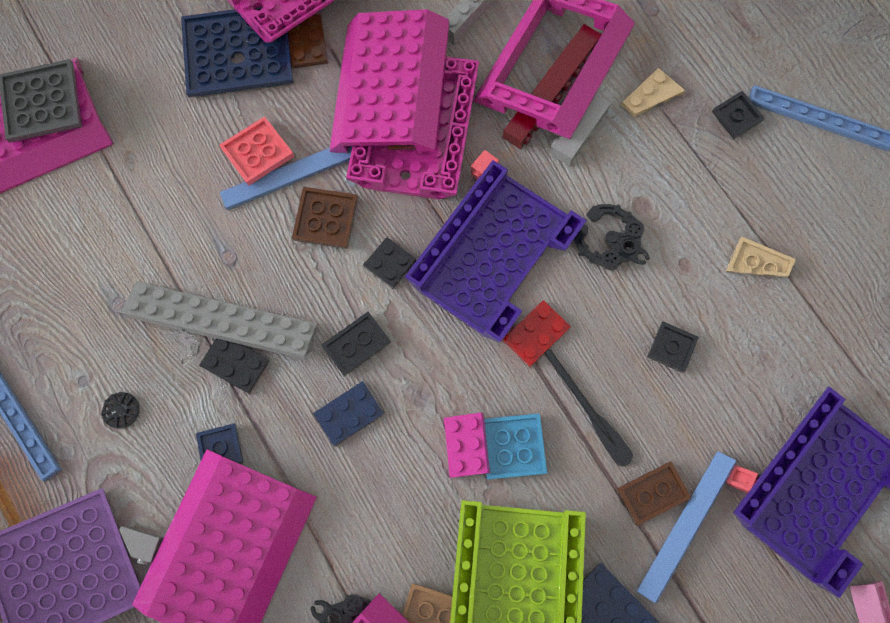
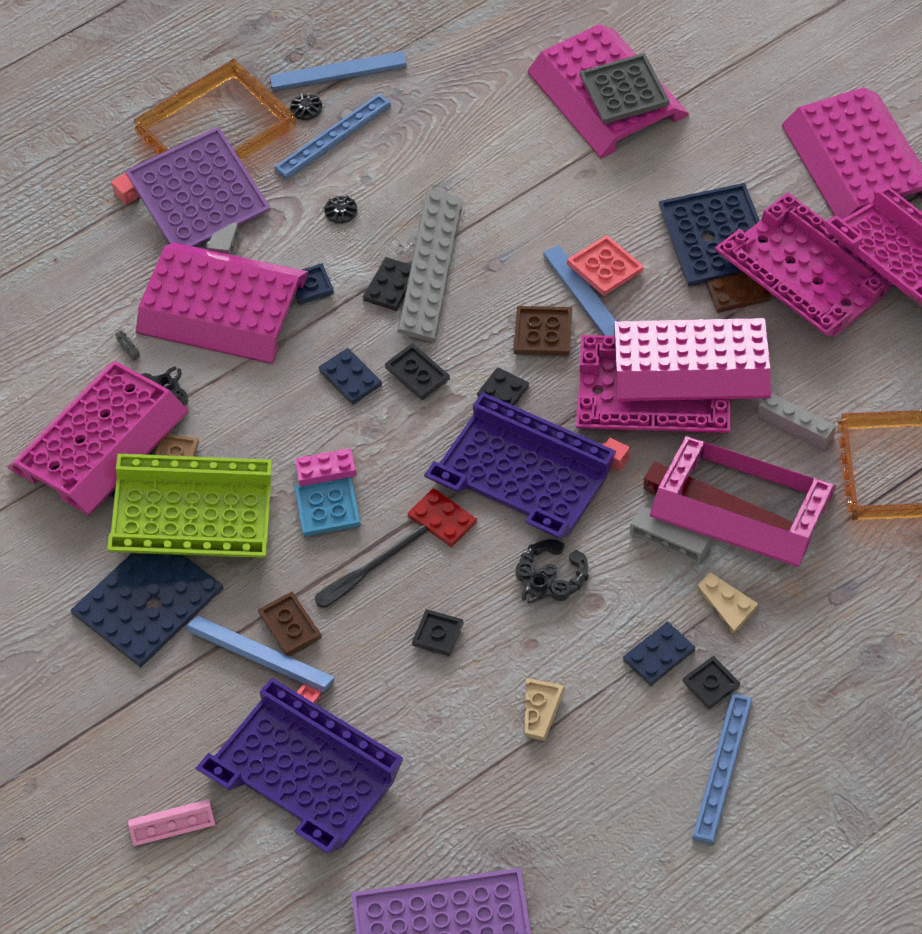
camera: 85 degrees right, 20 degrees down
(703, 155) = (659, 653): none -> dark blue plate

